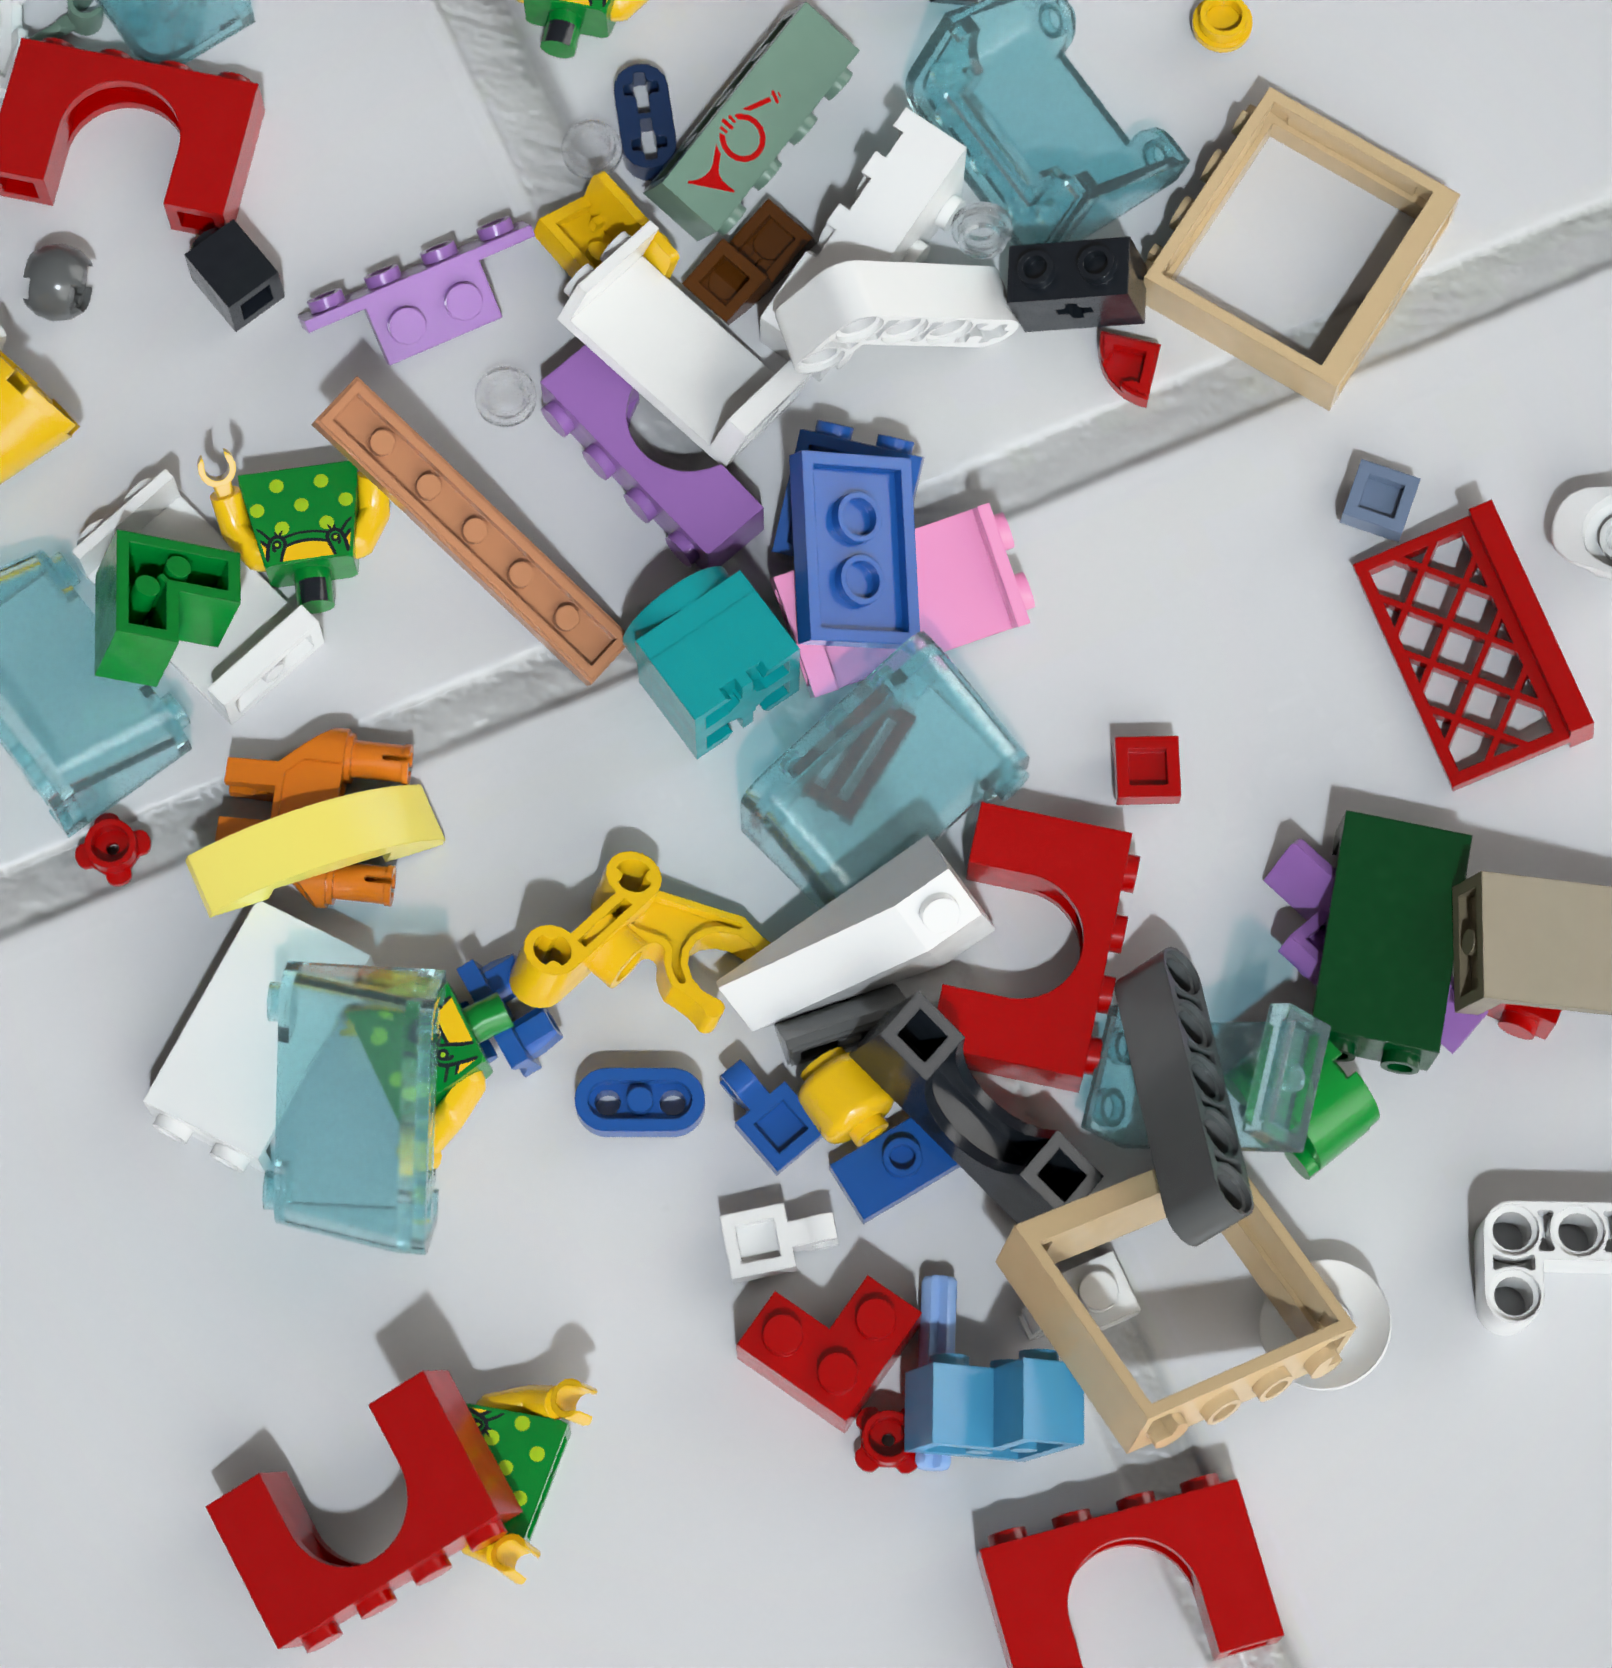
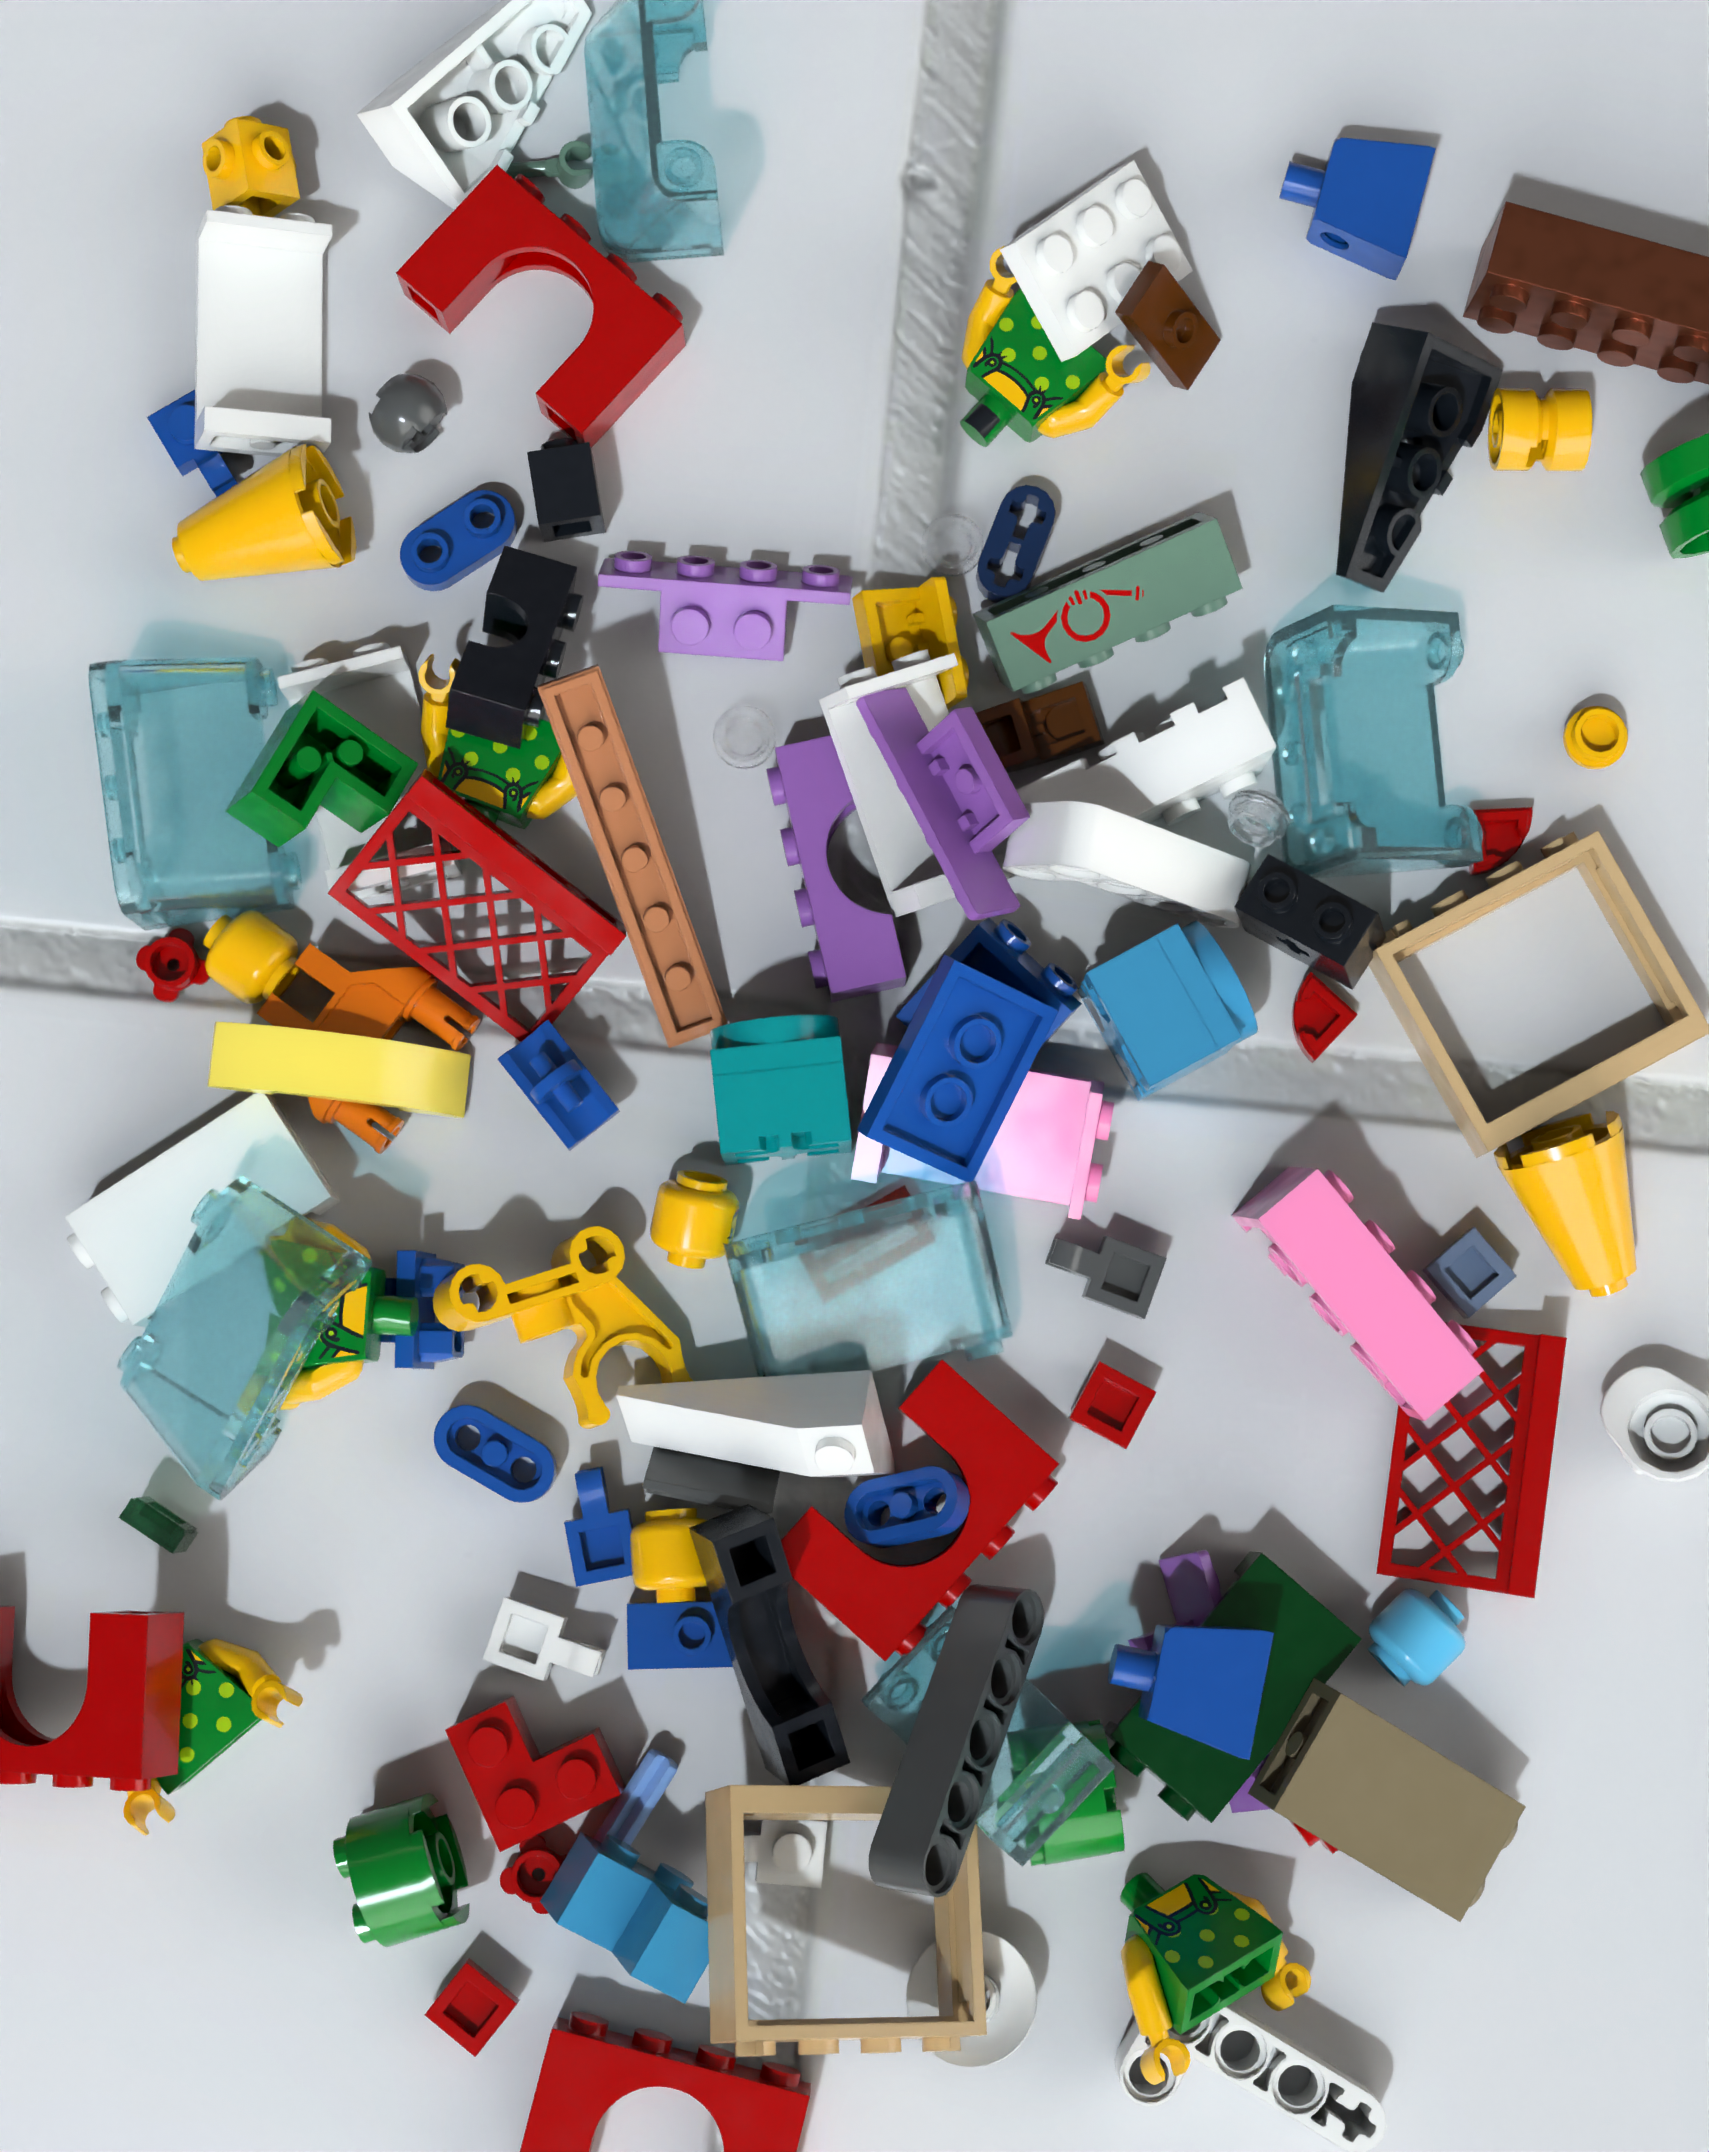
camera: 30 degrees right, 10 degrees up
(162, 363) = (461, 543): none -> blue plate
(179, 802) = (251, 956): none -> yellow head
(269, 416) = (497, 686): none -> black arch
(373, 596) = (511, 865): none -> red fence
(376, 1324) = (159, 1524): none -> clear green tile
(515, 760) = (558, 1085): none -> blue hips
(698, 809) = (694, 1218): none -> yellow head
(719, 324) = (954, 792): none -> medium lavender bracket
(771, 1490) = (402, 1871): none -> green brick
(897, 1584) = (472, 2007): none -> red plate
(999, 415) = (1168, 1006): none -> dark azure piece
(1024, 939) = (912, 1507): none -> blue plate
(1086, 660) = (1116, 1275): none -> dark grey plate
(1196, 139) = (1502, 836): none -> red tile
(1297, 552) = (1362, 1288): none -> bright pink wedge
(1359, 935) = (1199, 1682): none -> blue torso
(1434, 388) = (1578, 1197): none -> yellow cone
(1493, 1170) = (1193, 1956): none -> torso
(1517, 817) = (1417, 1636): none -> medium azure head

